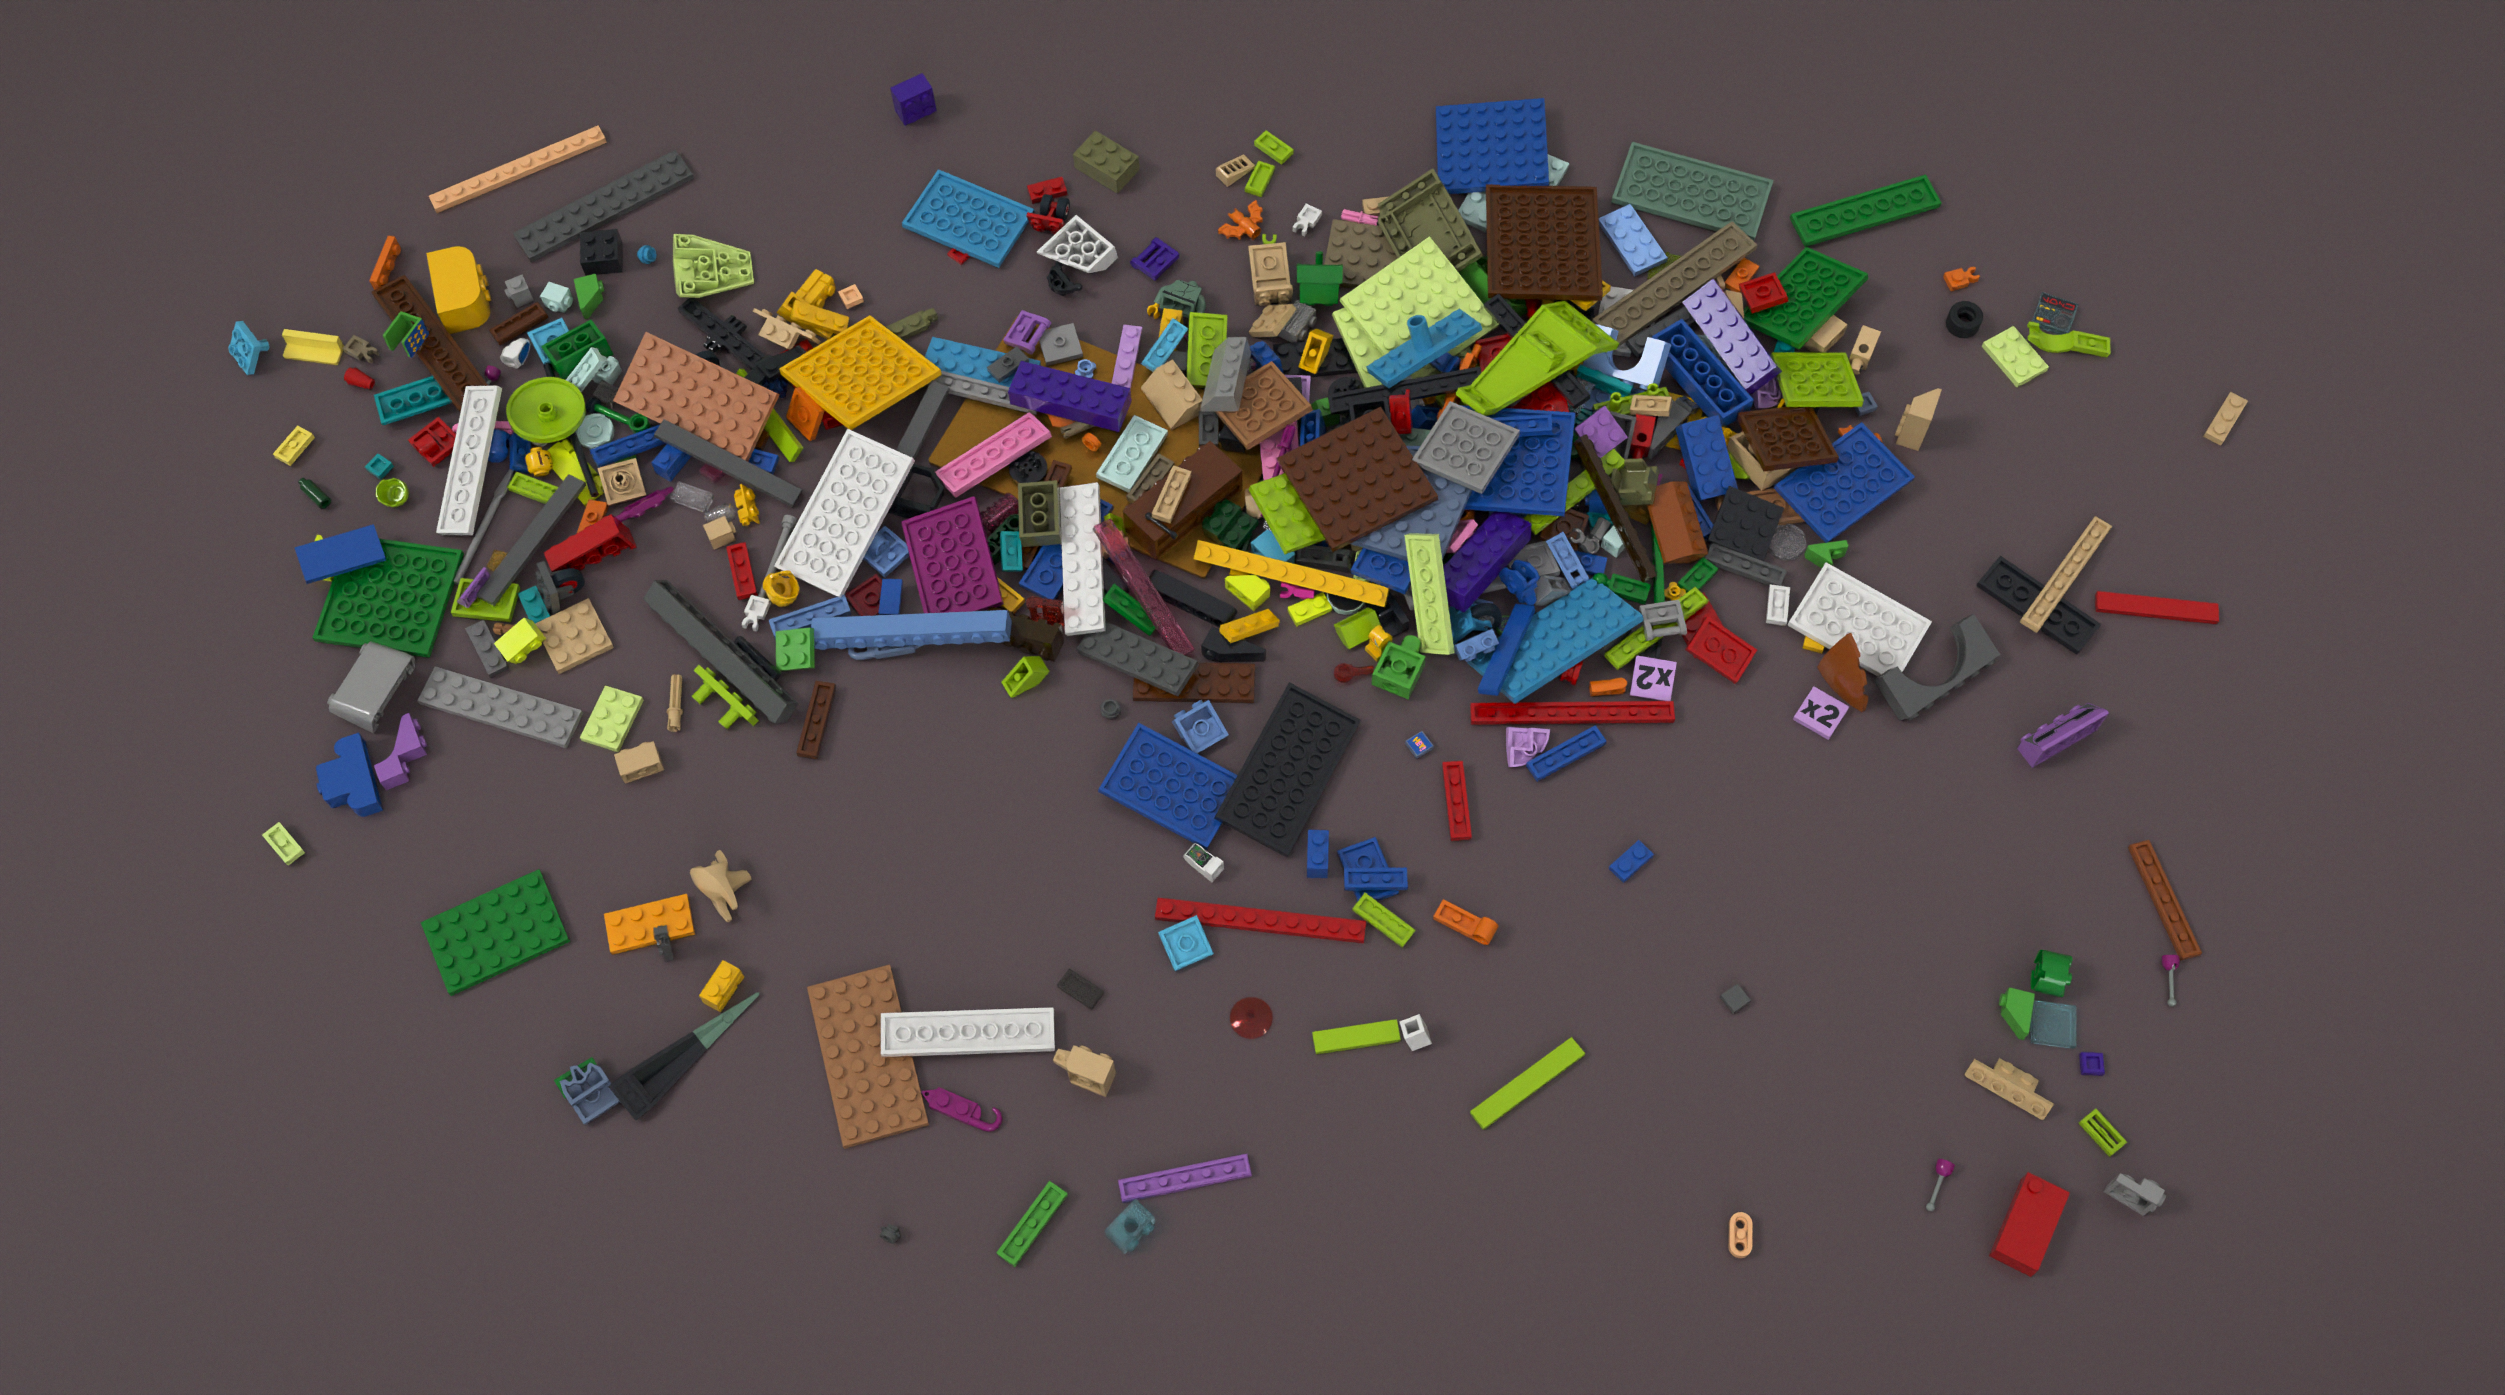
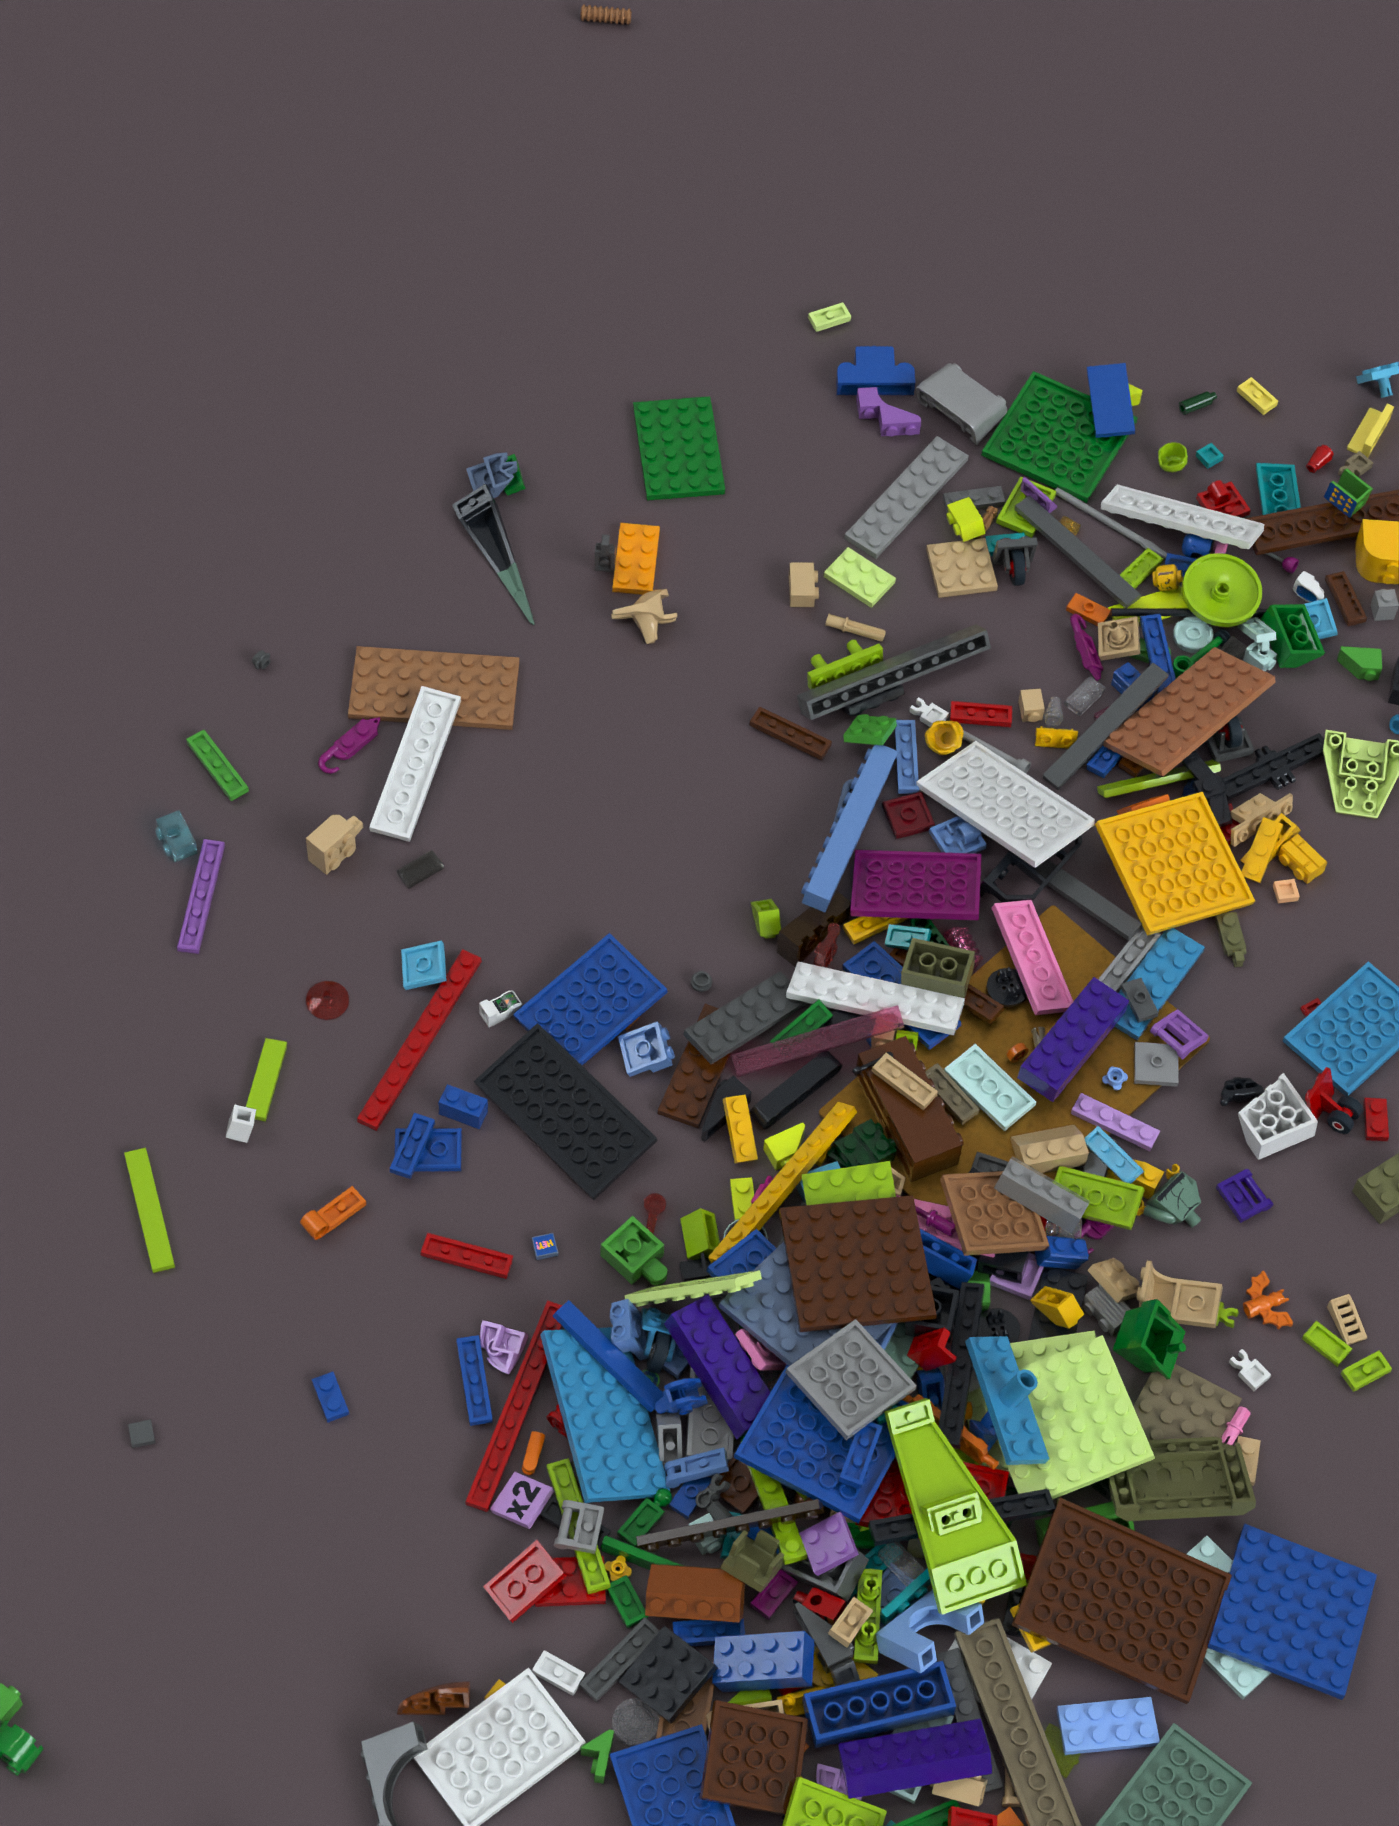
camera: 105 degrees right, 5 degrees down
(556, 297) = (1367, 634): light aqua brick -> none
(590, 545) = (1052, 597): red wedge -> none
(721, 986) = (548, 593): yellow brick -> none
(890, 597) = (899, 826): blue tile -> none
(1377, 642) = (673, 1242): yellow leg -> none
(1383, 920) = (369, 1142): lime plate -> none
(1821, 713) = (412, 1662): lavender tile -> none

